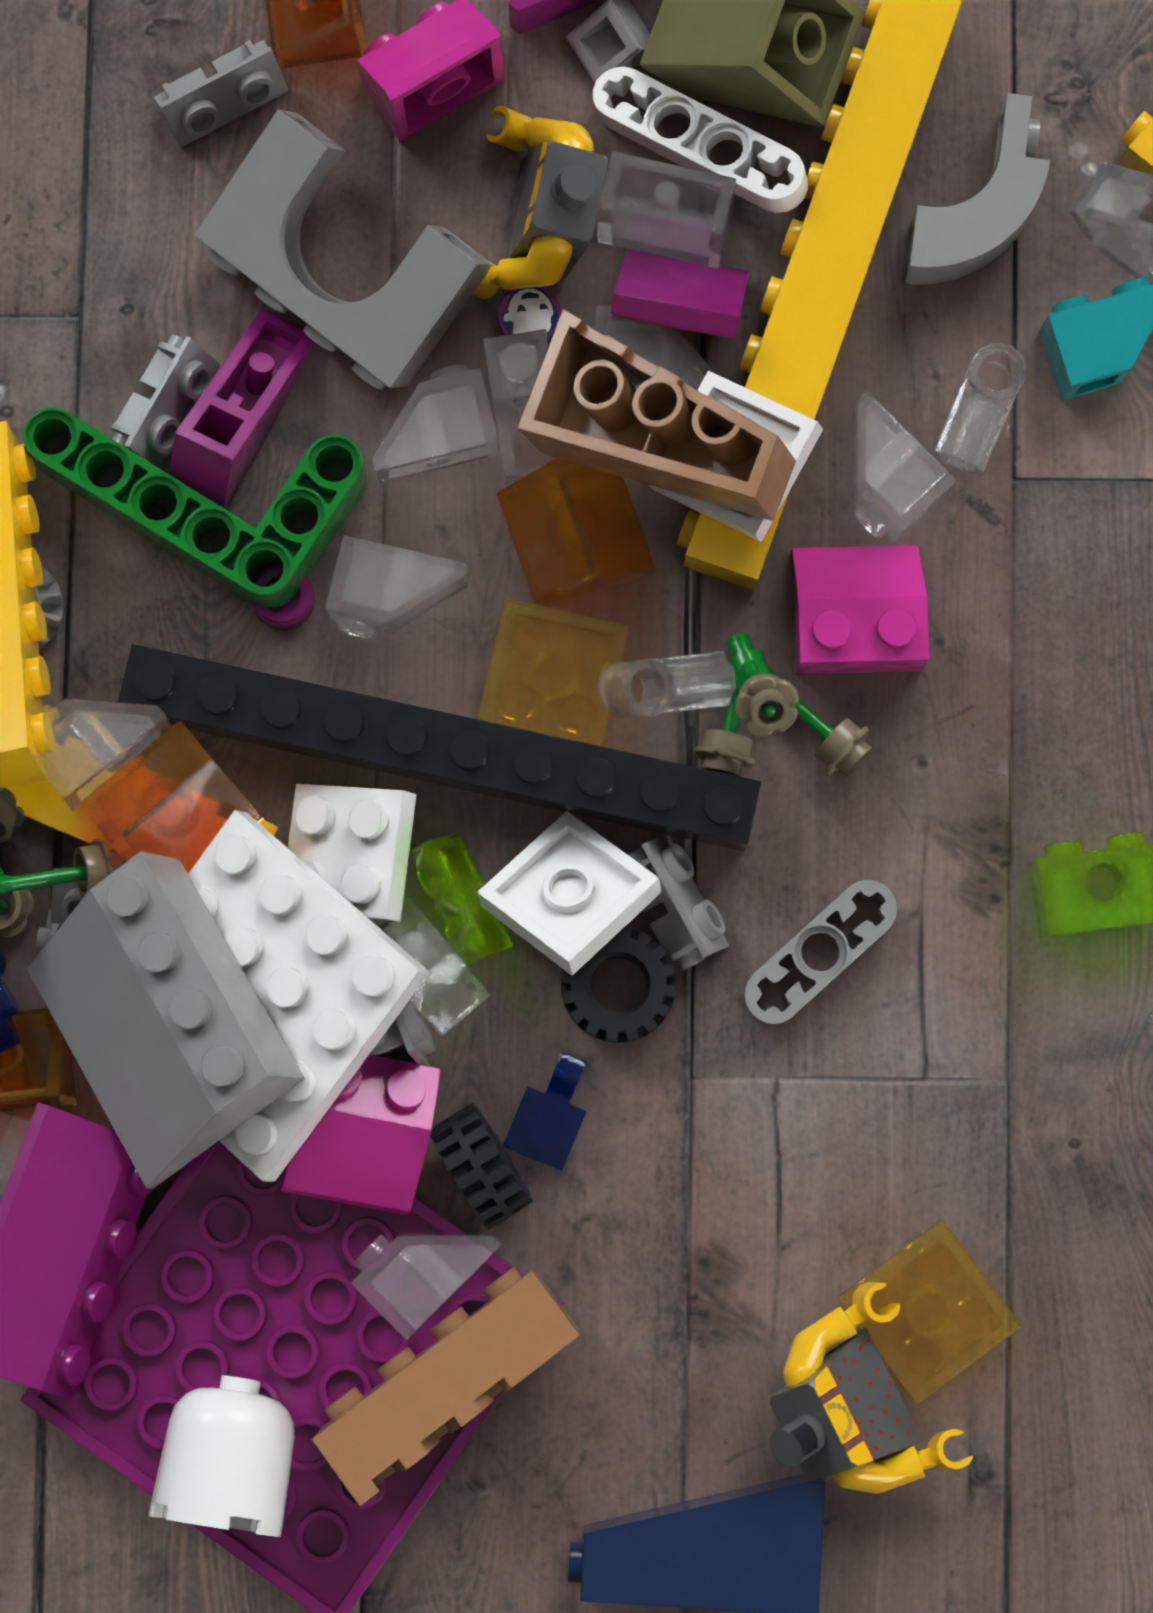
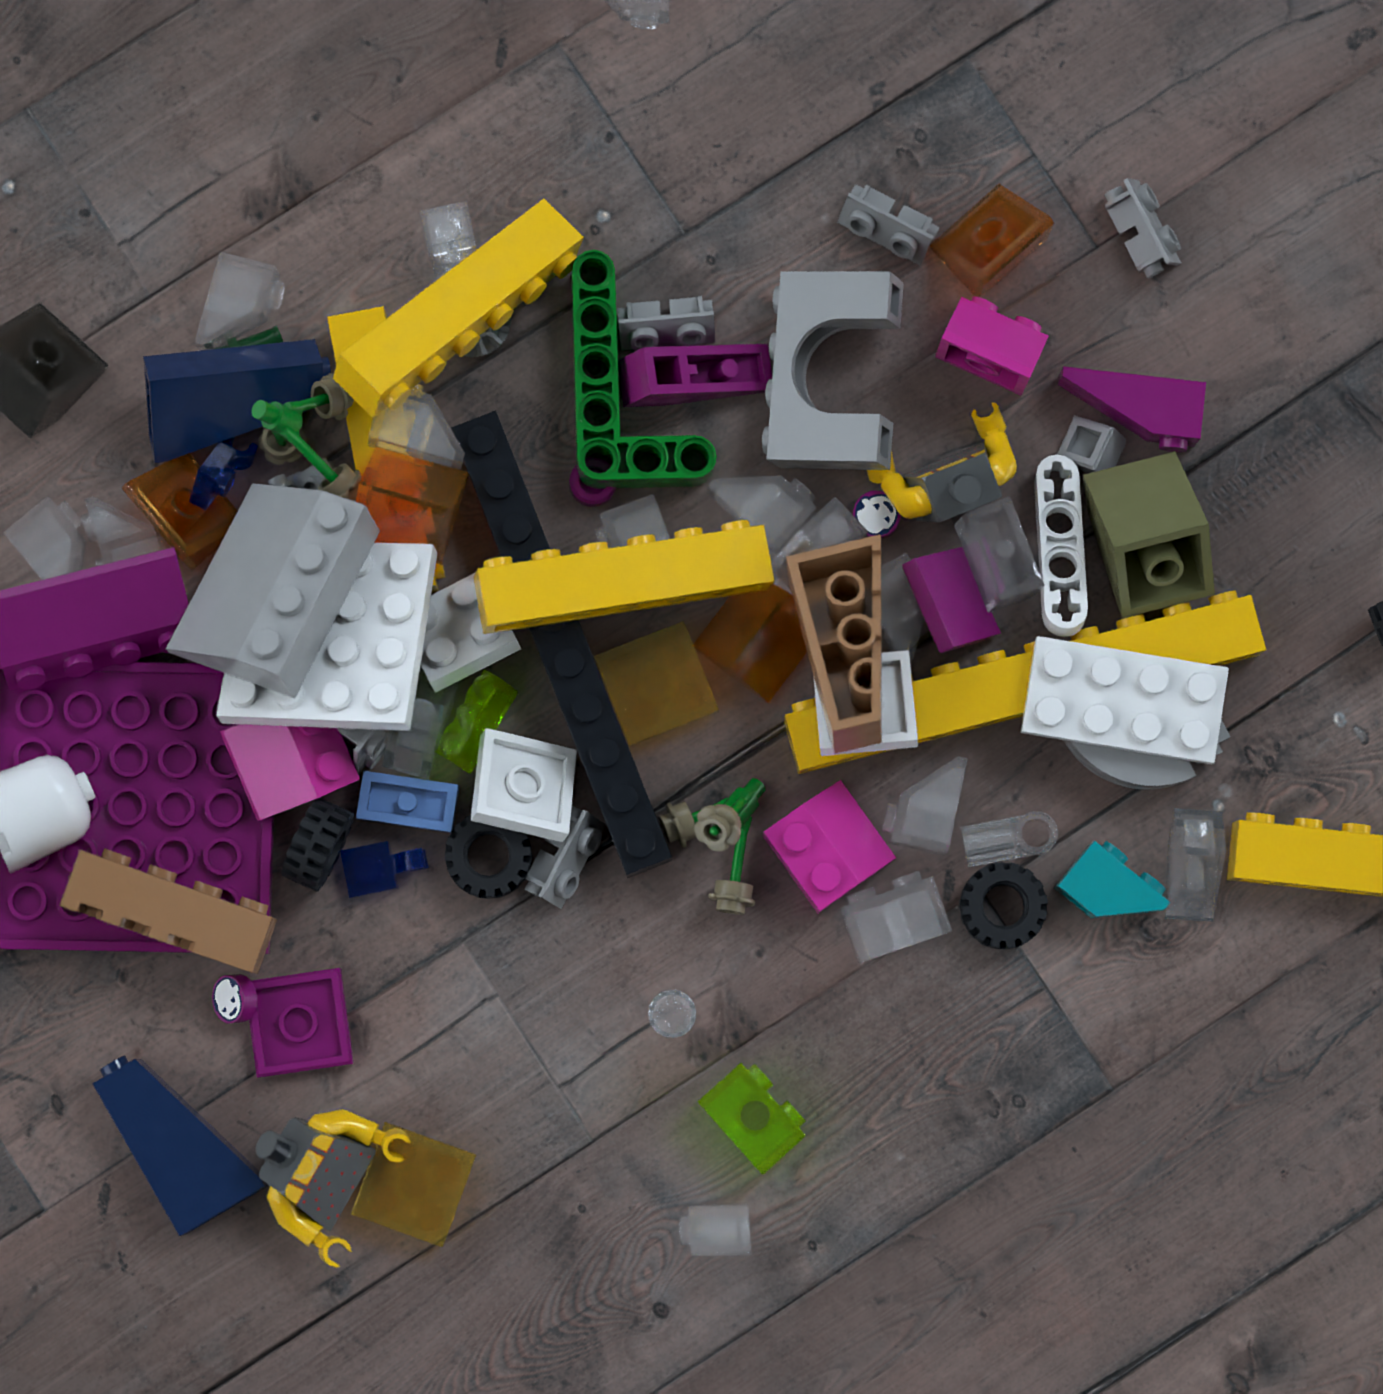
camera: 50 degrees right, 0 degrees up
(415, 627) = (623, 577): none -> yellow brick
(419, 1273) = (225, 850): clear slope -> none
(499, 1035) = (407, 802): none -> medium blue plate
(589, 1375) = (234, 998): none -> tile
(662, 1320) = (300, 1023): none -> magenta tile
(668, 684) = (697, 759): clear piece -> none
(865, 932) = (562, 946): light grey beam -> none
(915, 904) = (676, 1014): none -> clear wheel
(918, 179) = (1124, 700): none -> white plate
(986, 587) = (894, 918): none -> clear brick
(1066, 429) = (1025, 884): none -> black tyre

